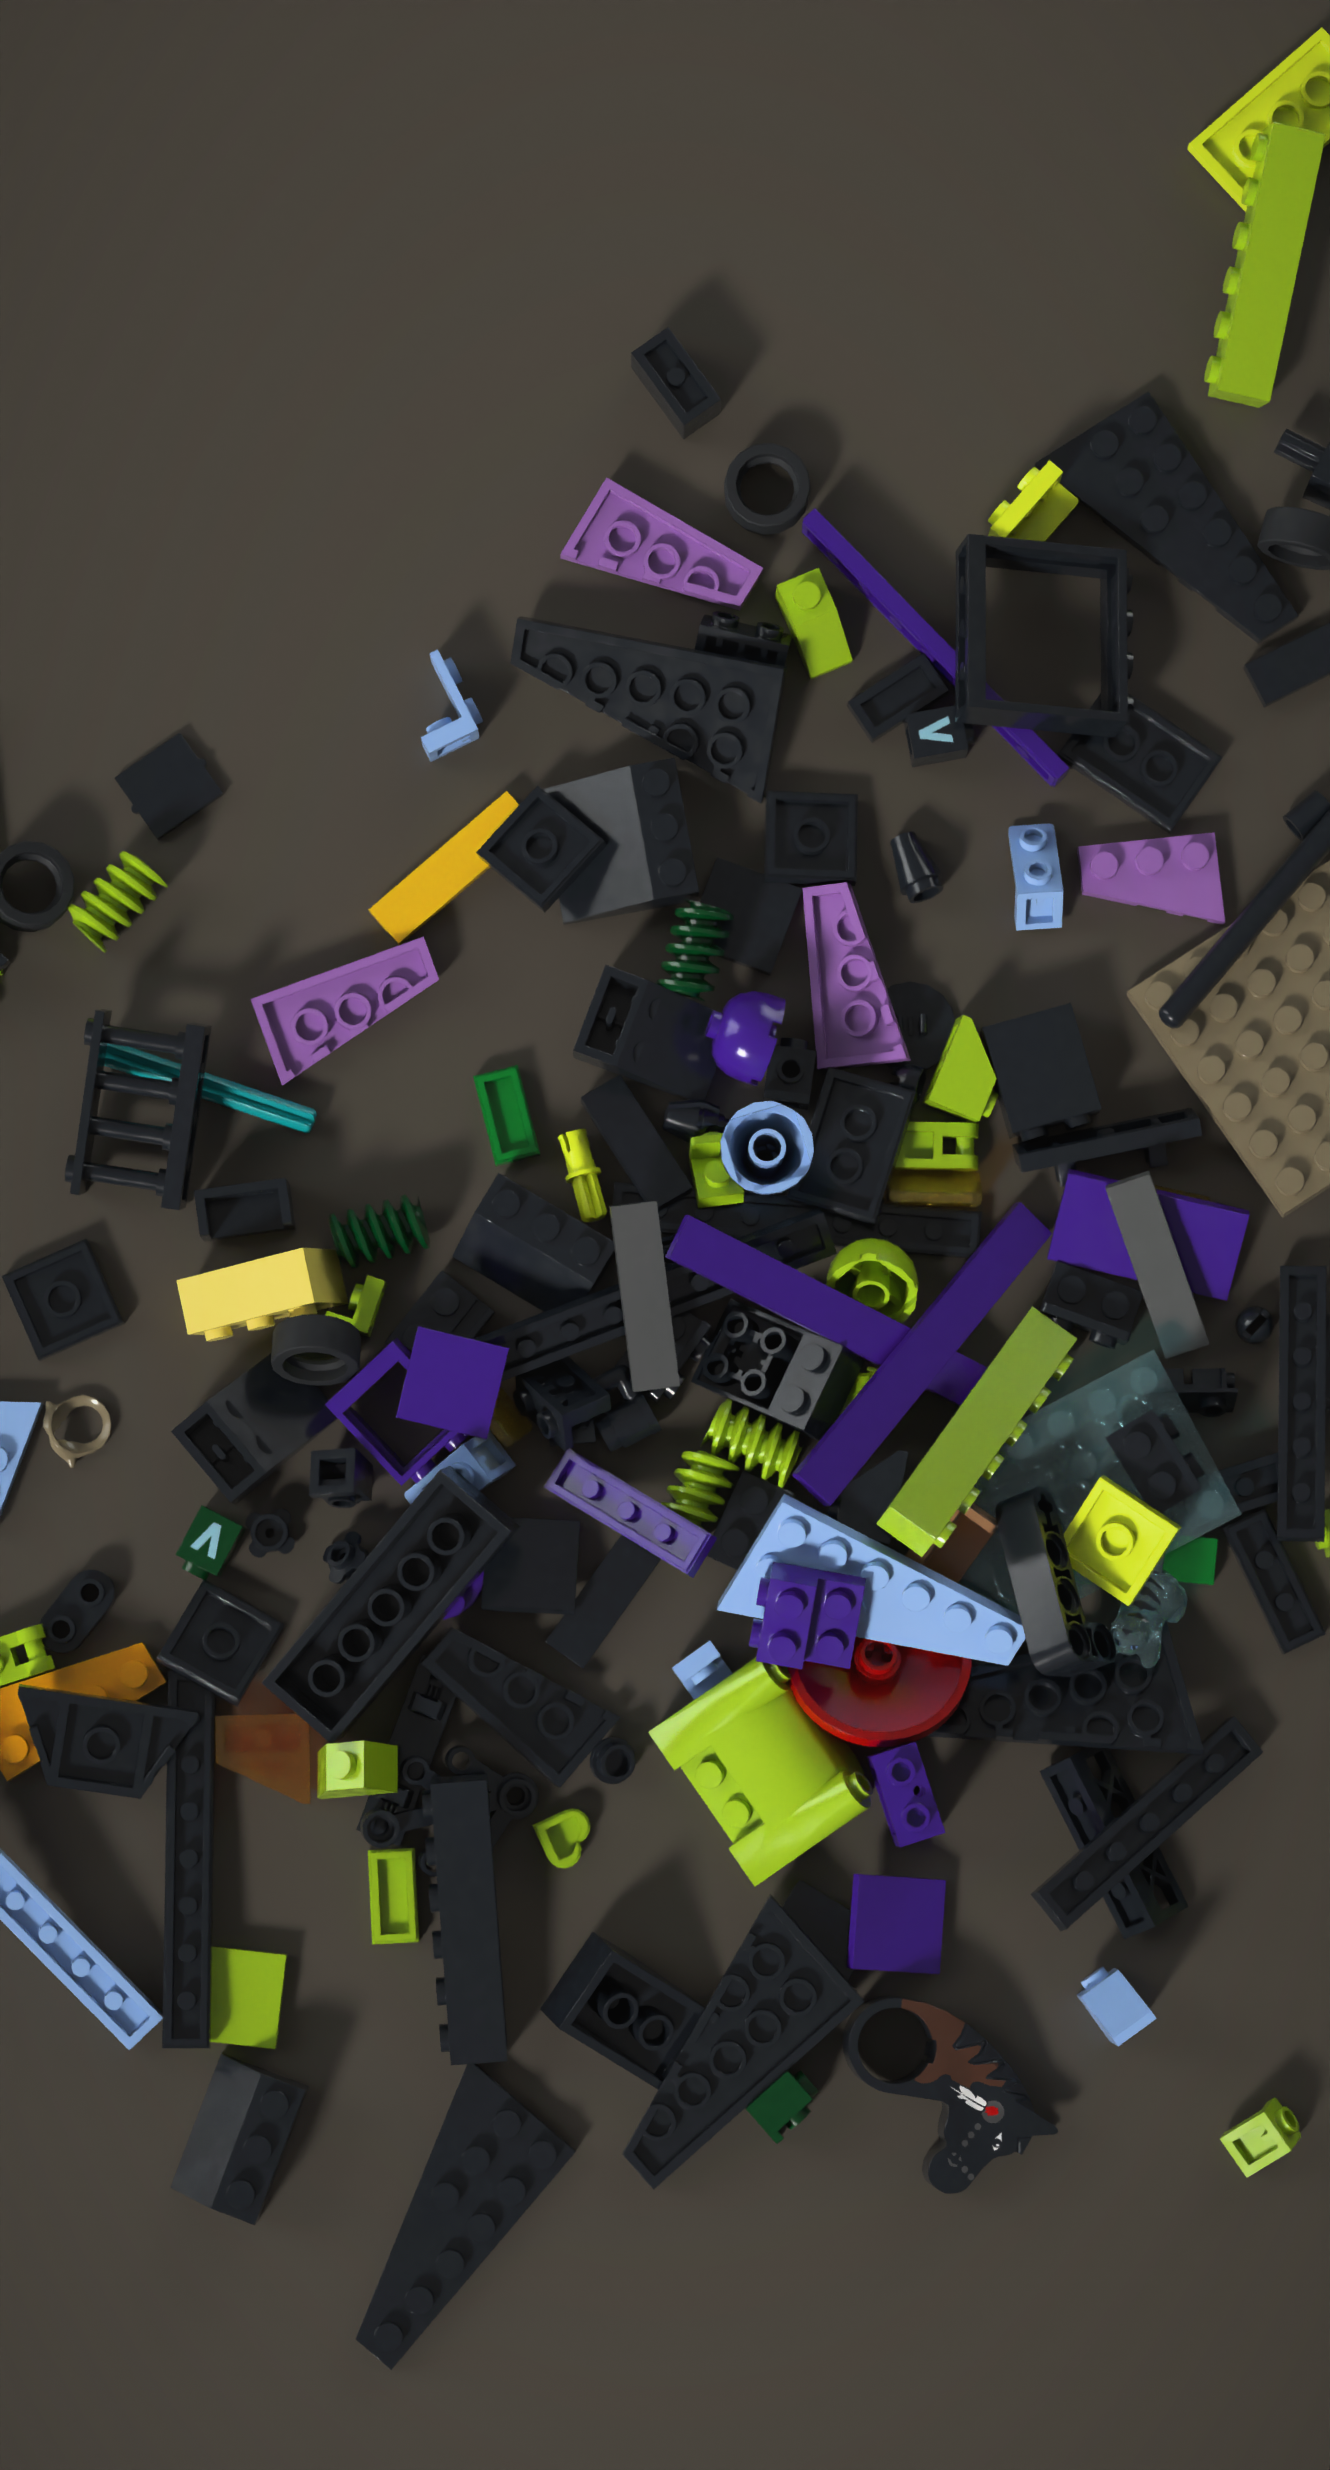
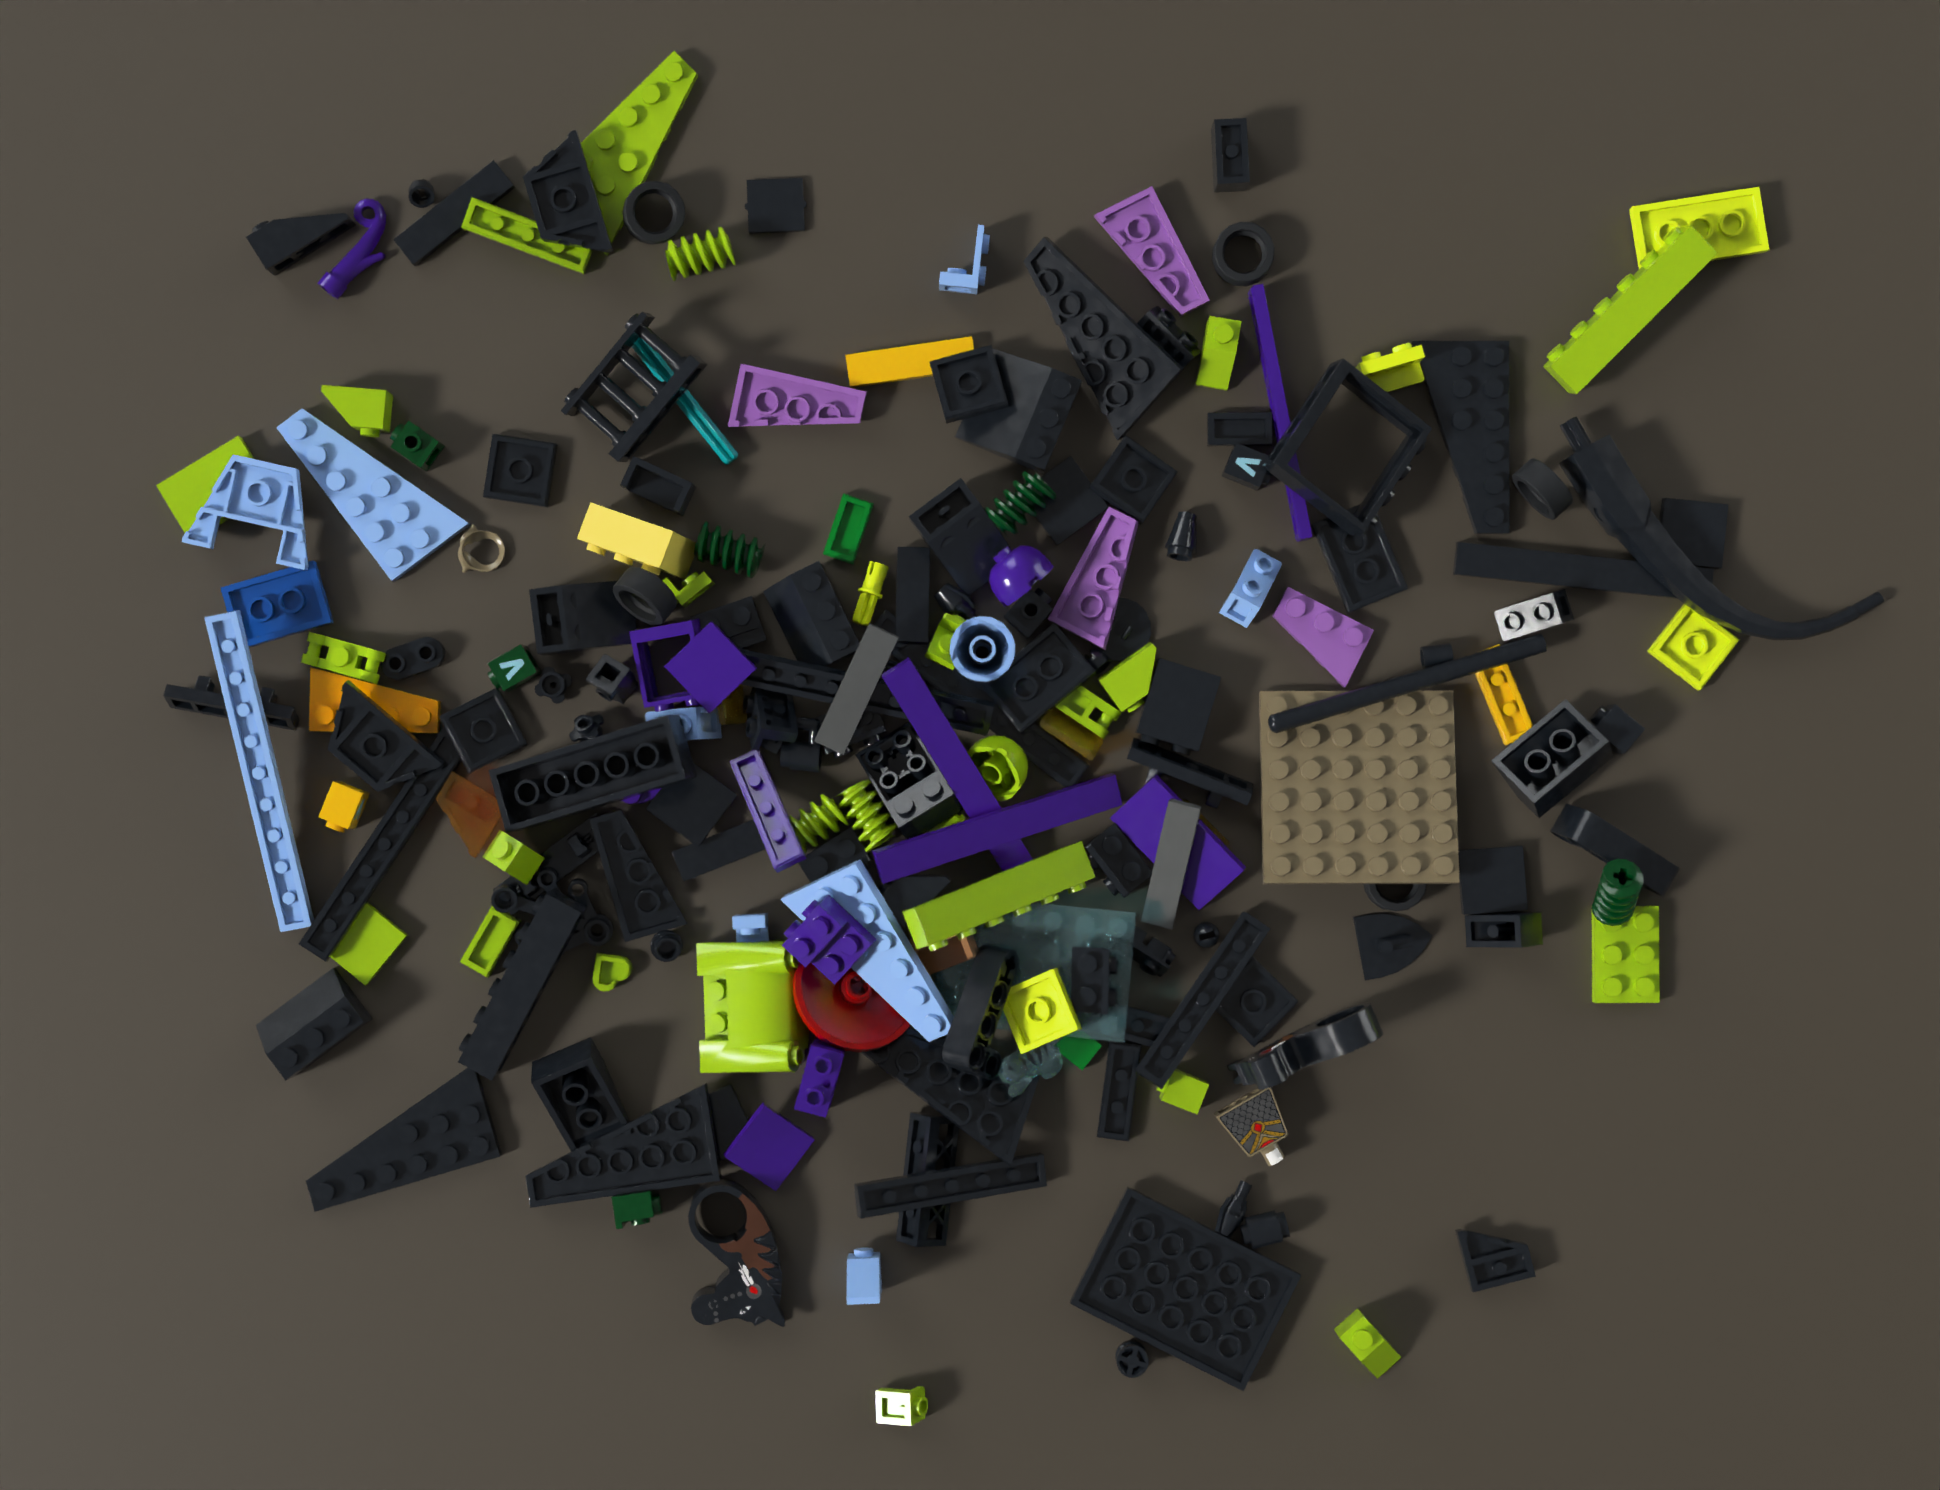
camera: 40 degrees right, 5 degrees up
(108, 1845) = (343, 806): none -> yellow brick

